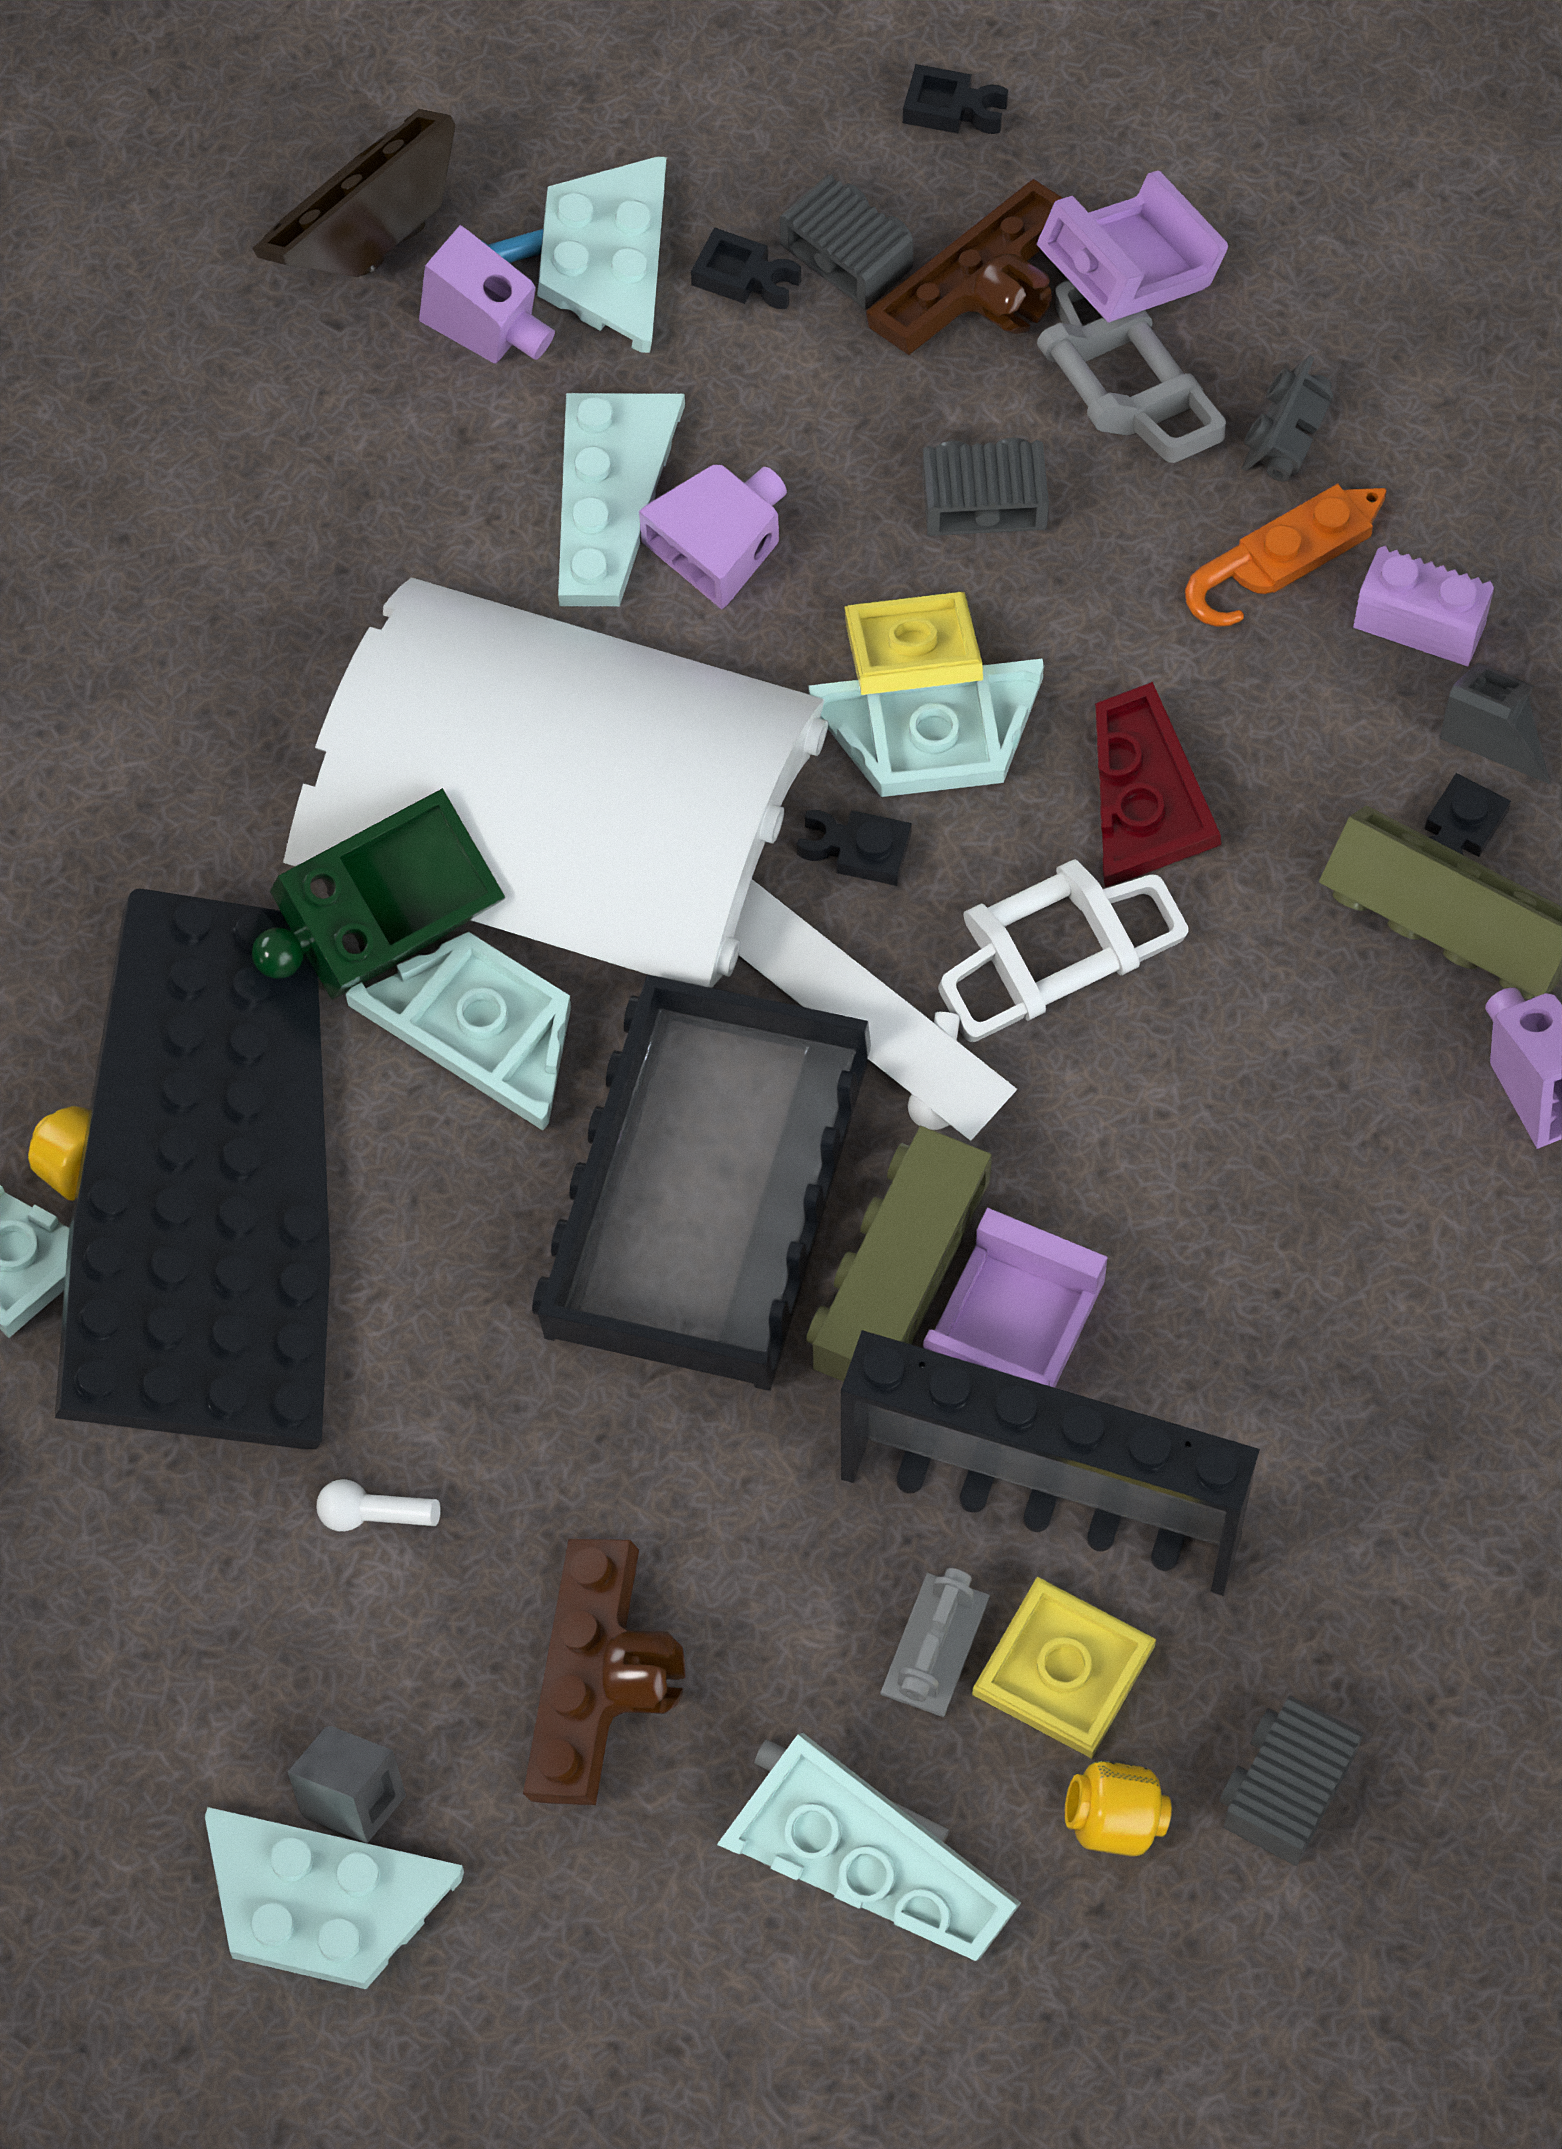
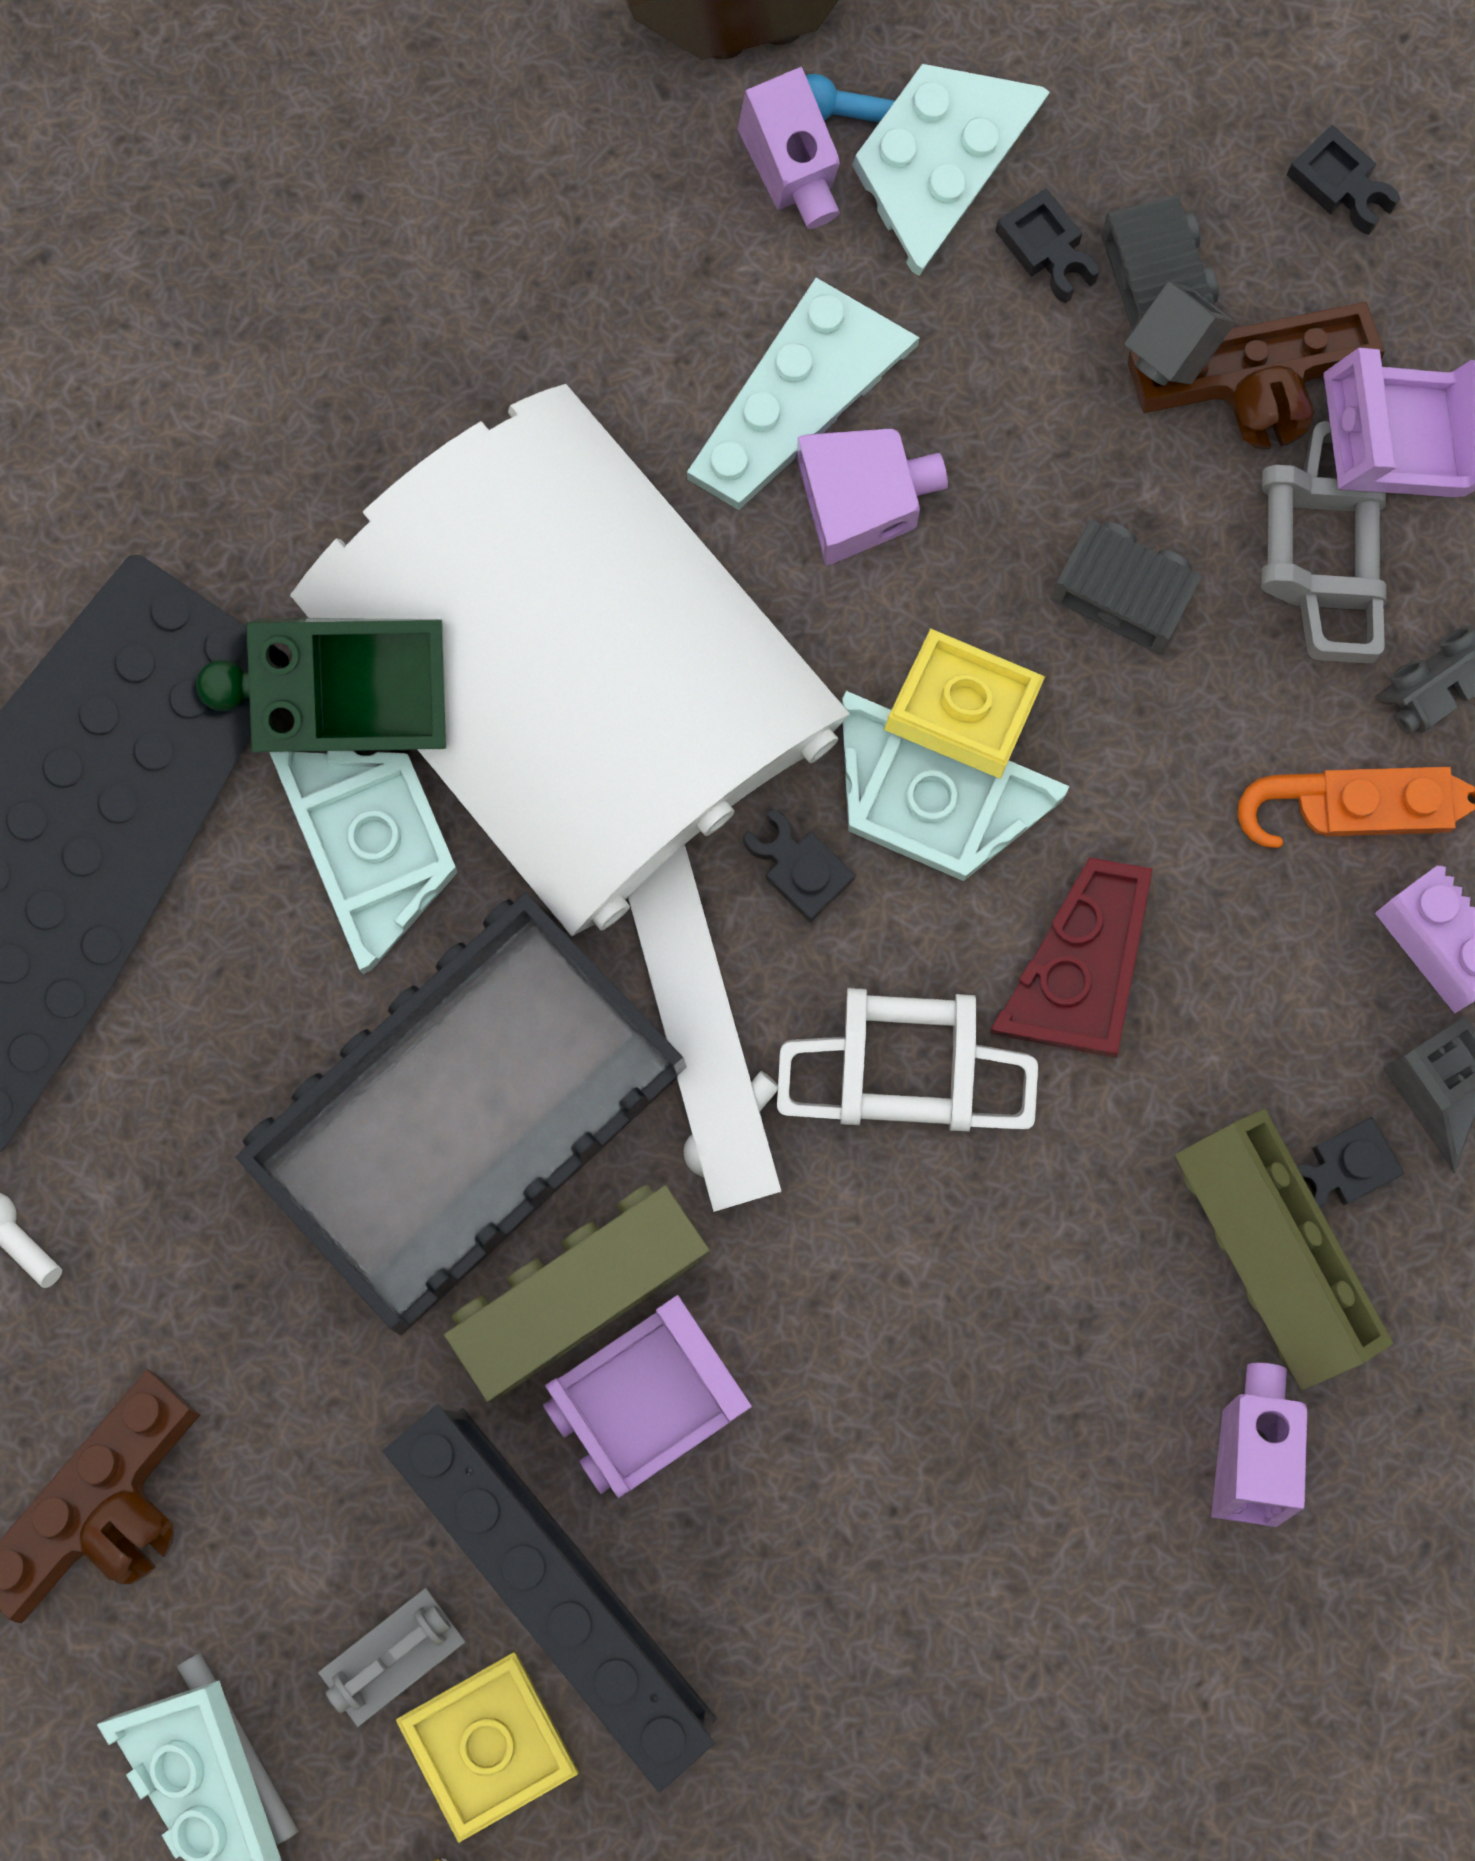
camera: 30 degrees right, 15 degrees up
(902, 271) = (1178, 335): none -> dark grey brick

